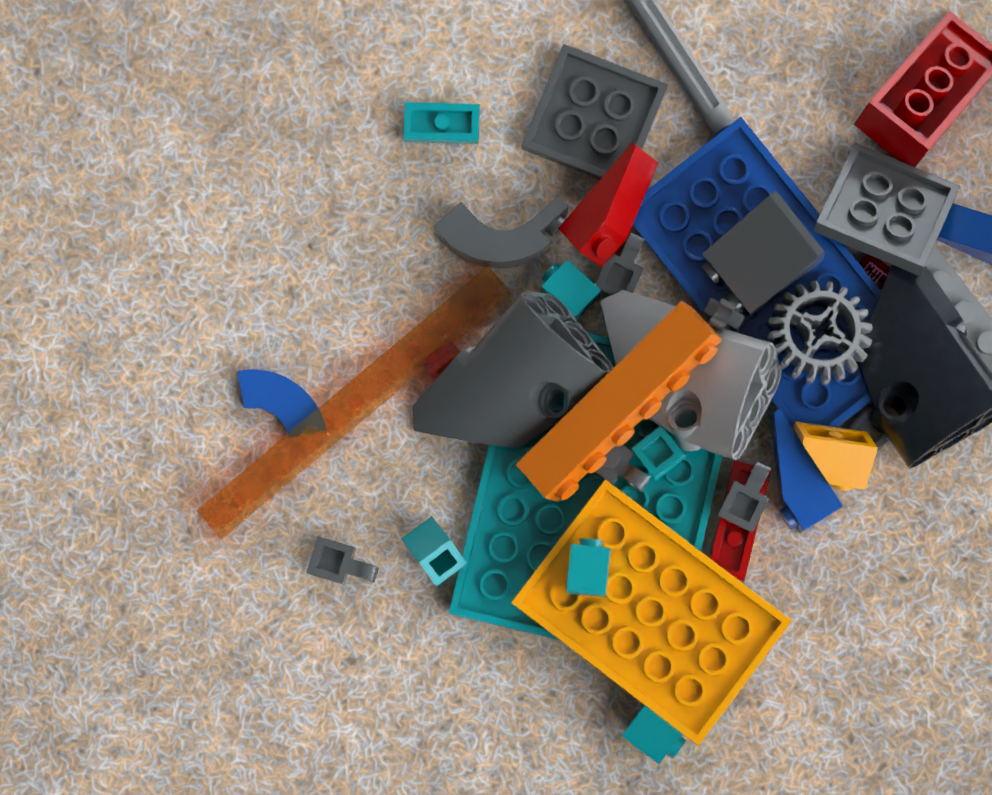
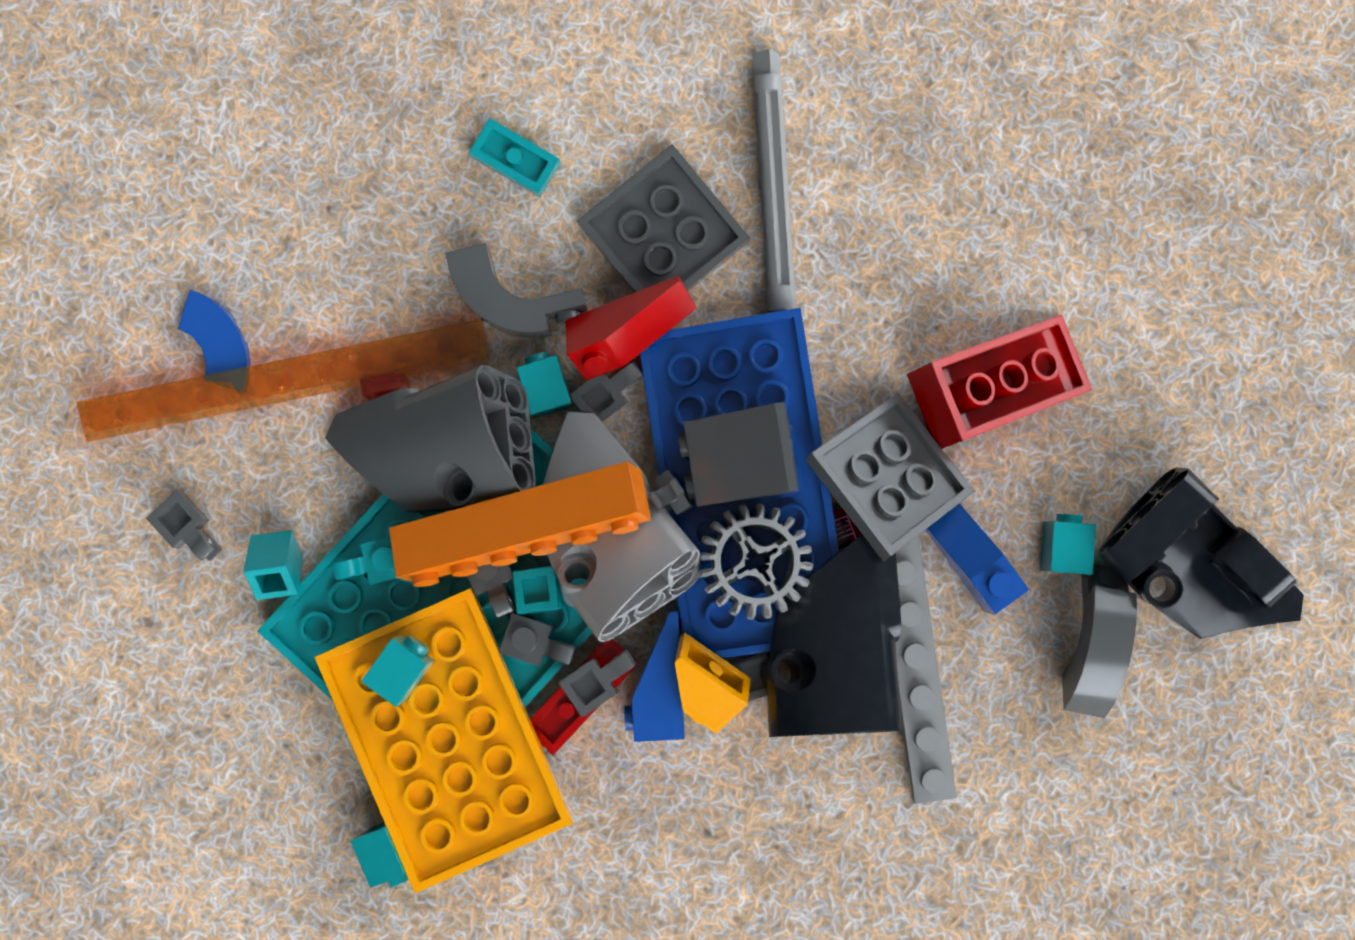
camera: 25 degrees right, 5 degrees up
(518, 499) = (376, 563): none -> teal plate
(674, 496) = (531, 640): none -> dark grey plate

